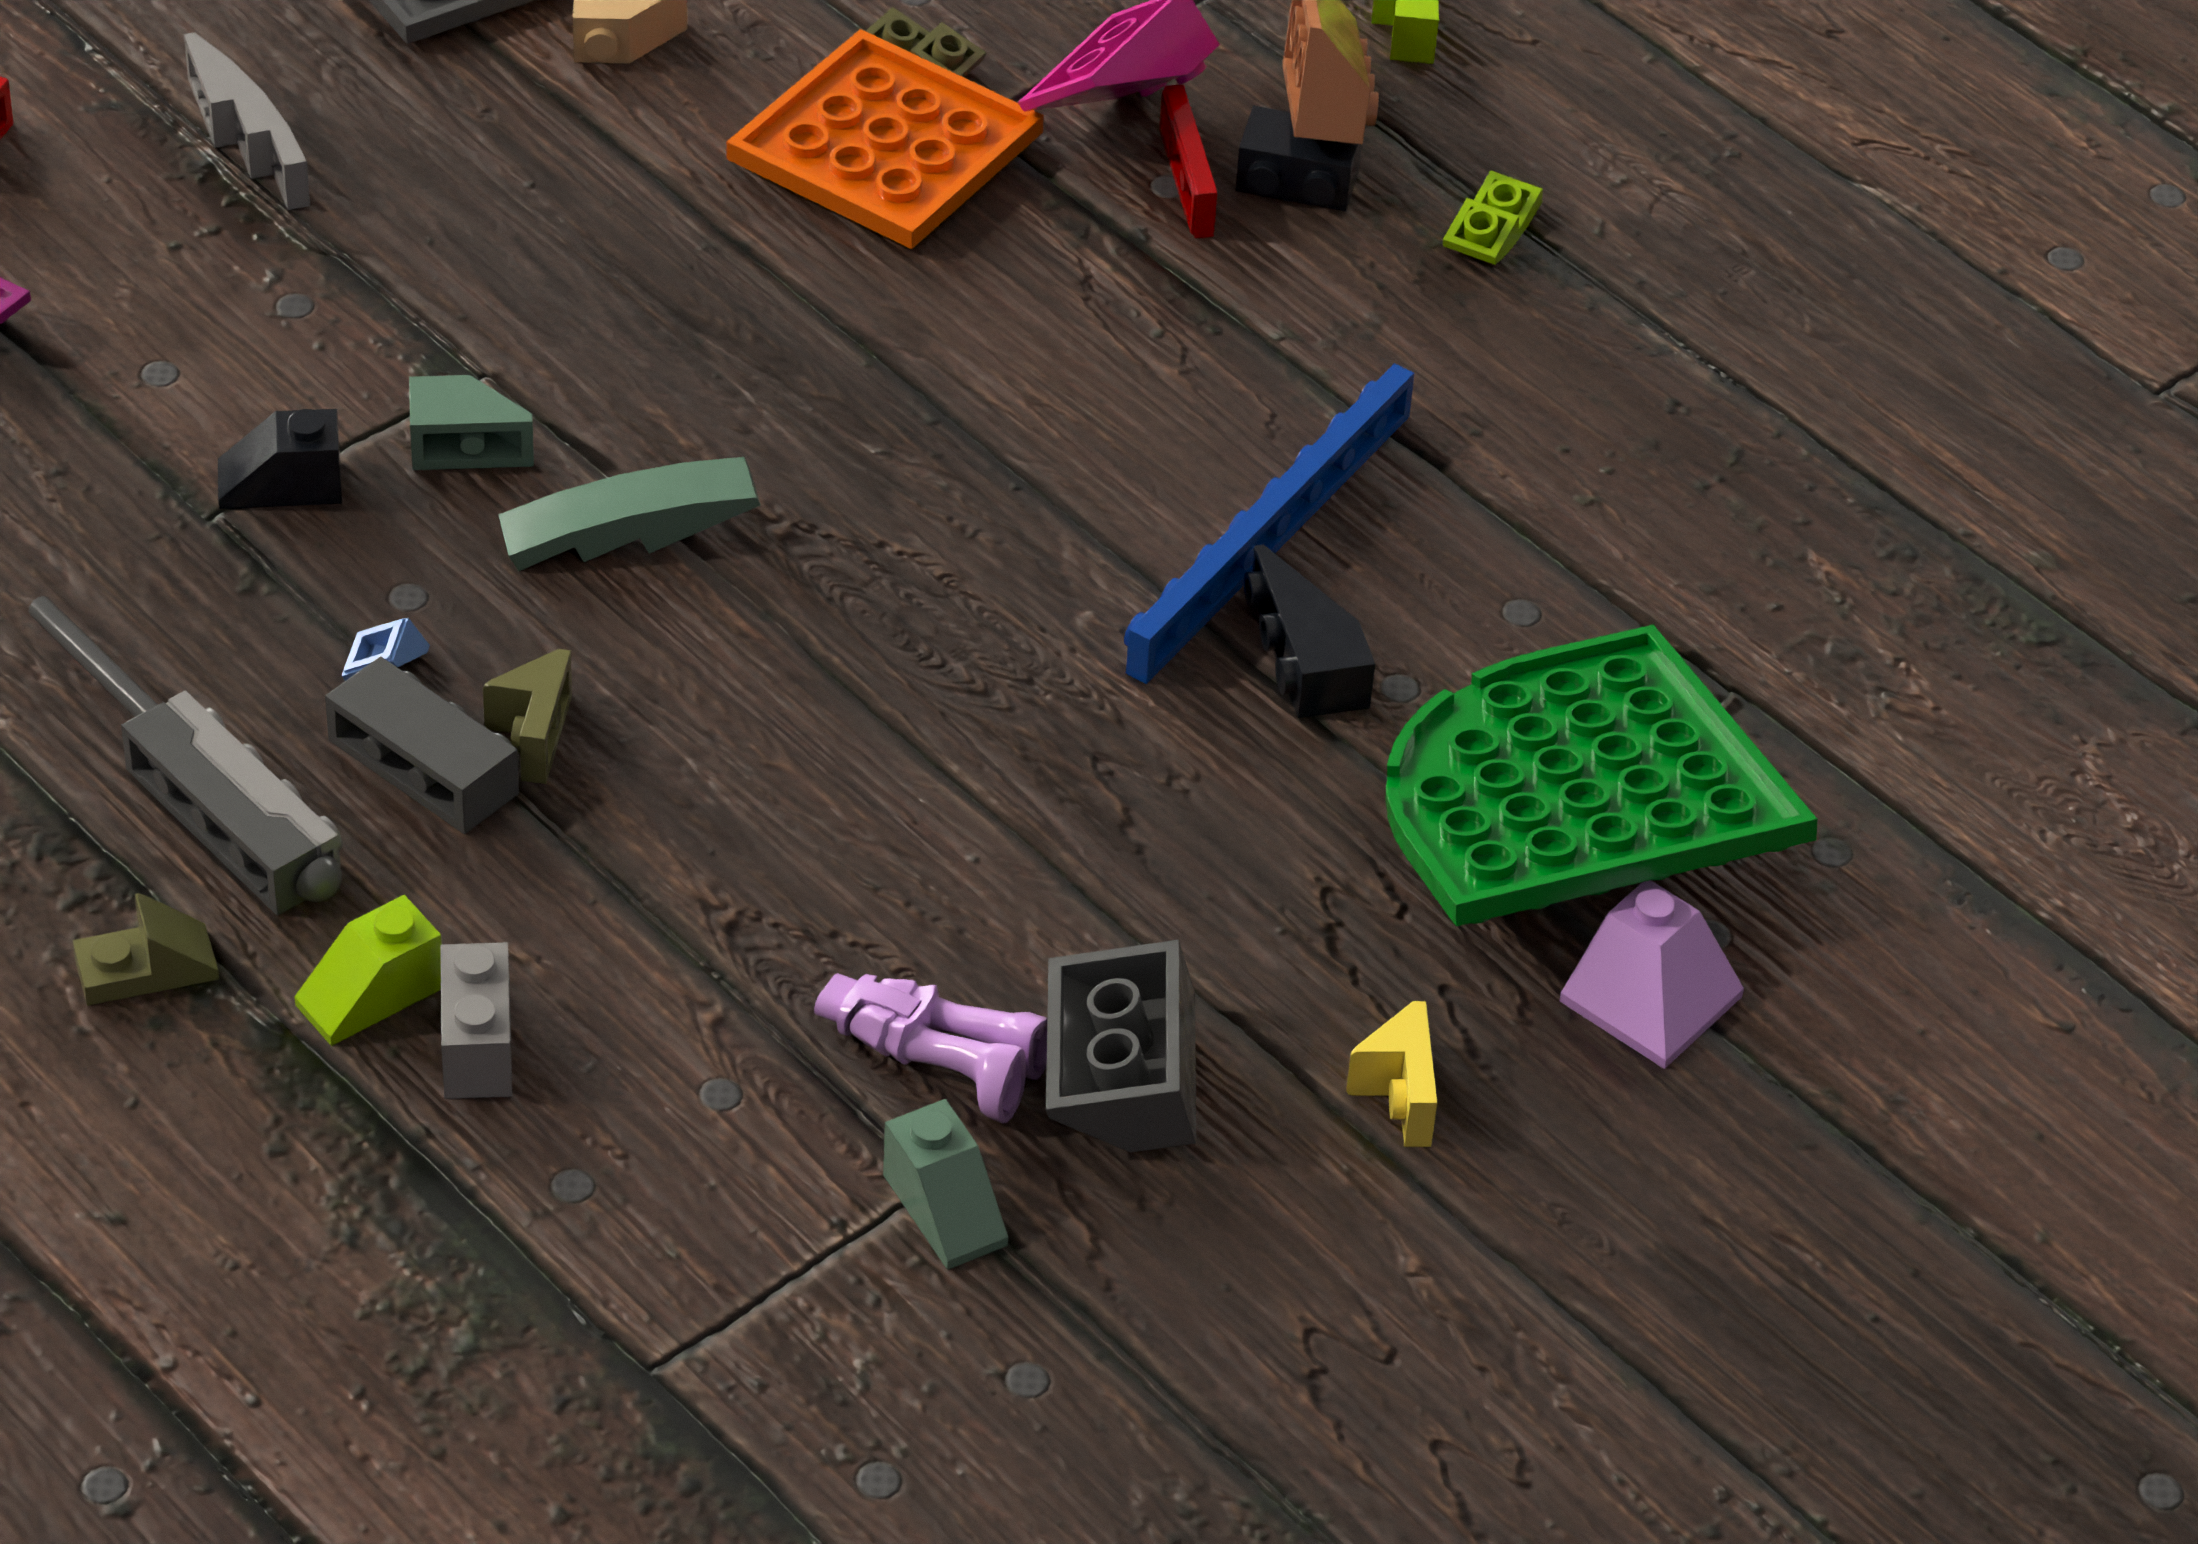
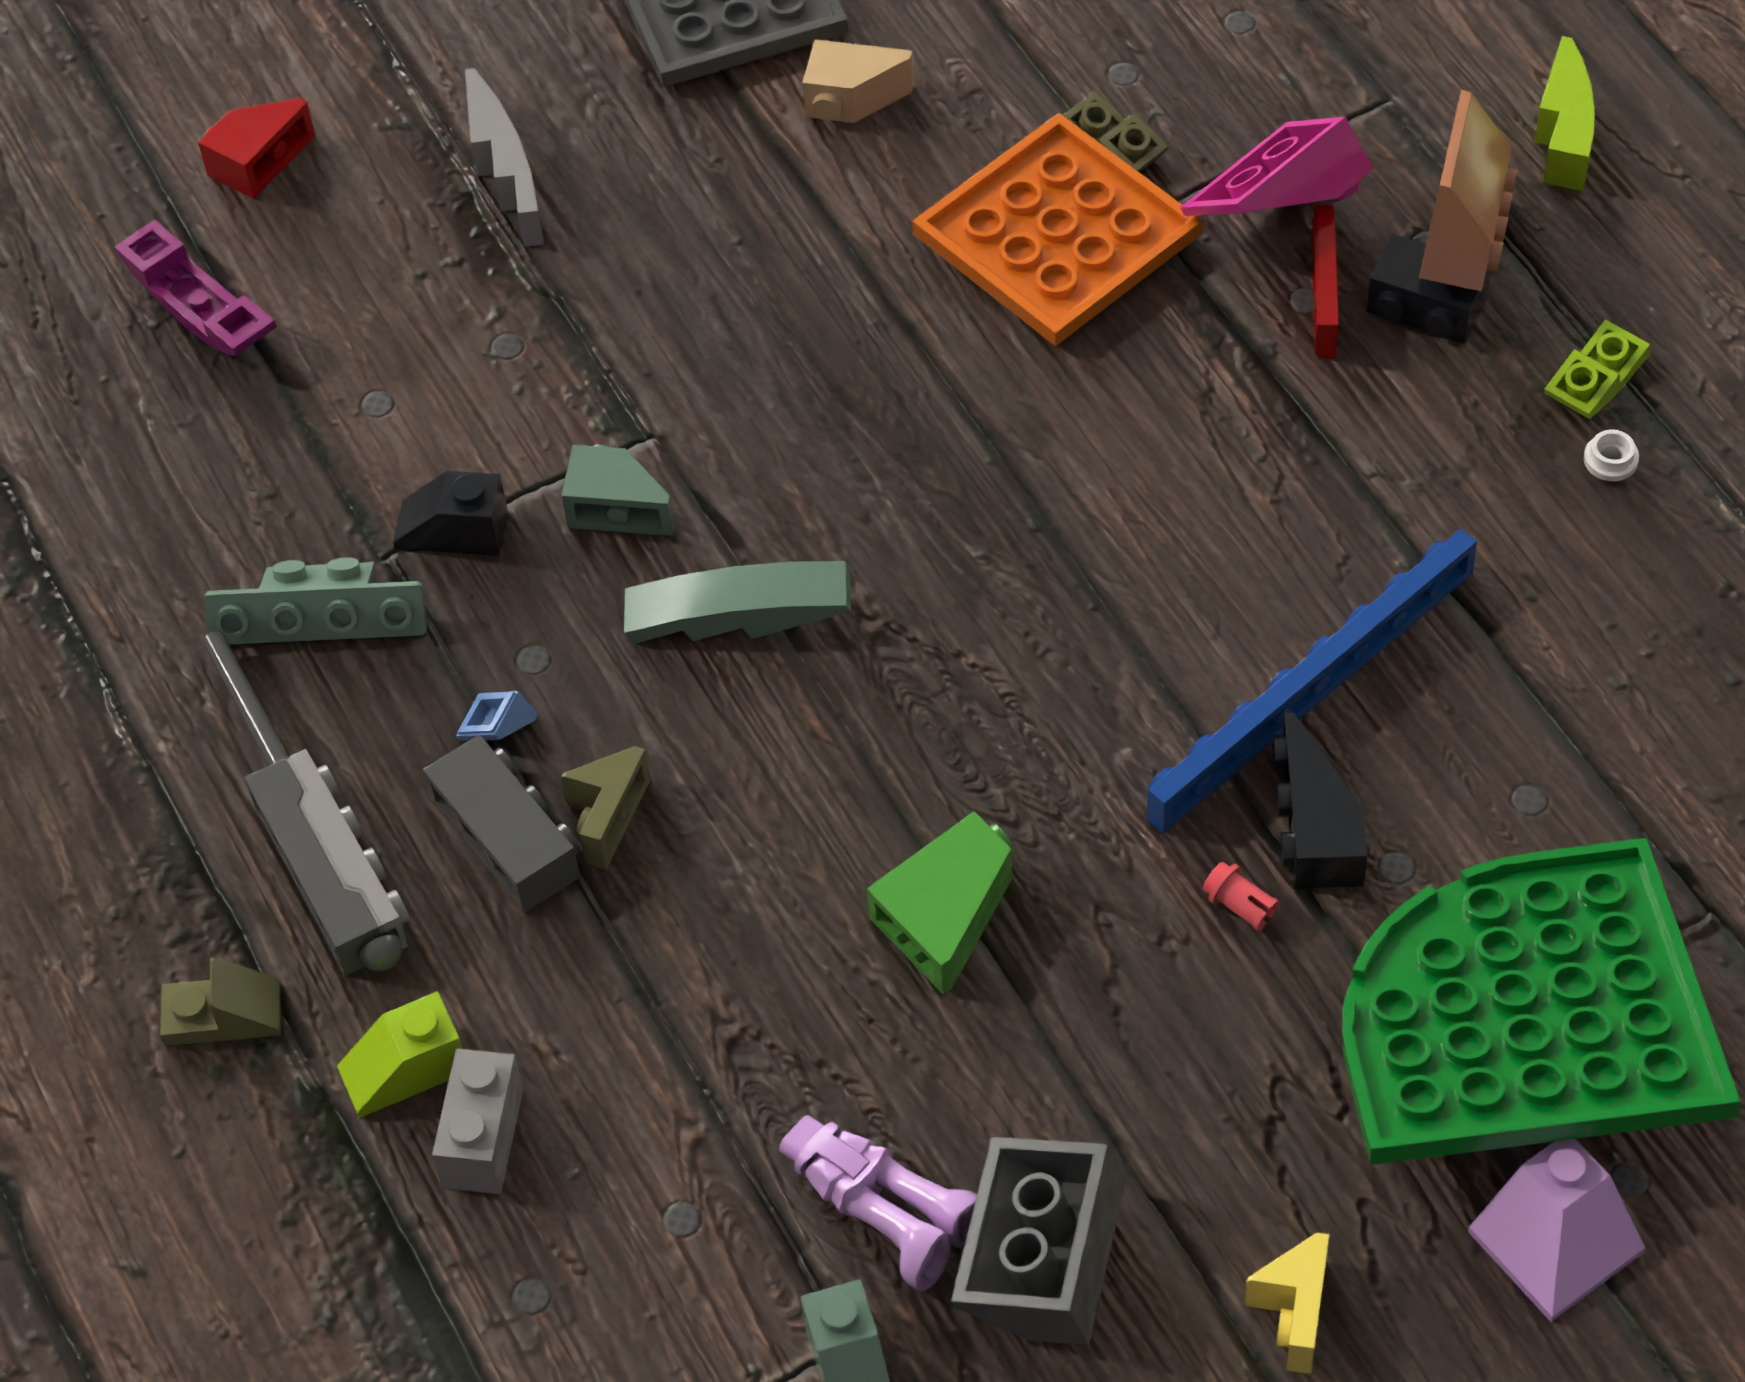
camera: 20 degrees right, 10 degrees up
(153, 564) = (317, 604): none -> sand green bracket
(929, 760) = (944, 898): none -> bright green slope
(1246, 724) = (1240, 895): none -> coral pin
(1527, 293) = (1613, 445): none -> white plate

